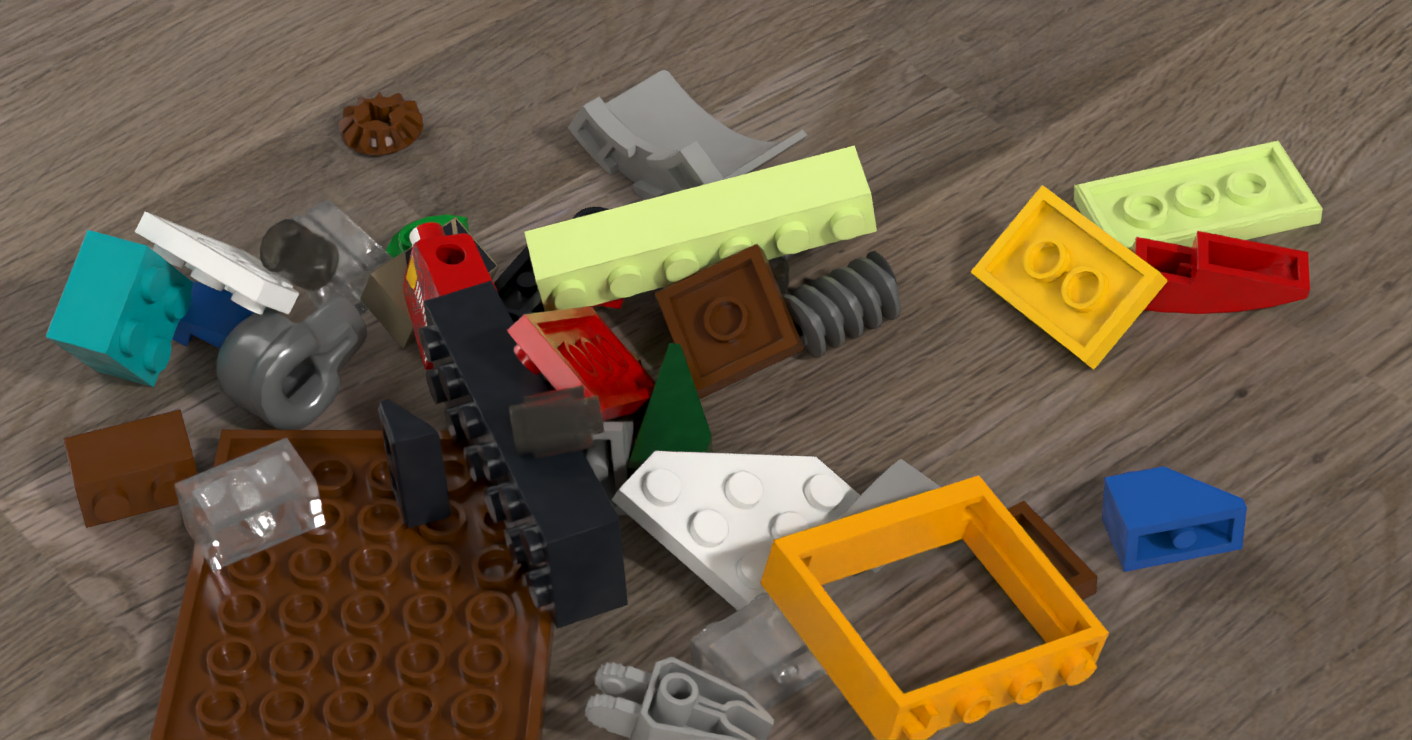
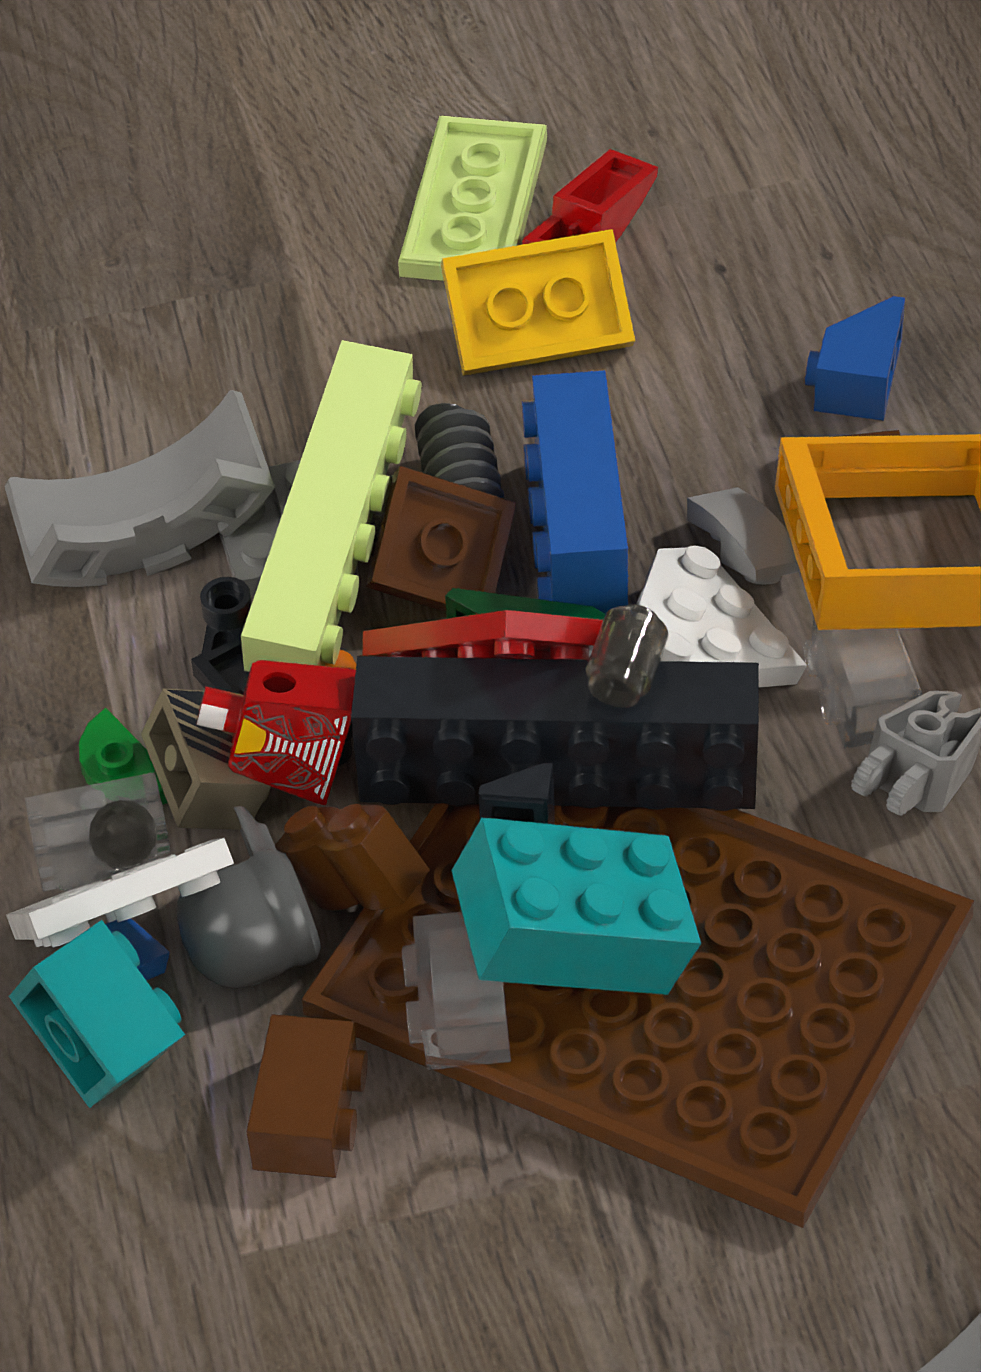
camera: 65 degrees left, 5 degrees up
(331, 522) = (574, 907): none -> teal brick
(351, 389) = (352, 857): none -> reddish brown brick
(832, 378) = (576, 491): none -> blue brick

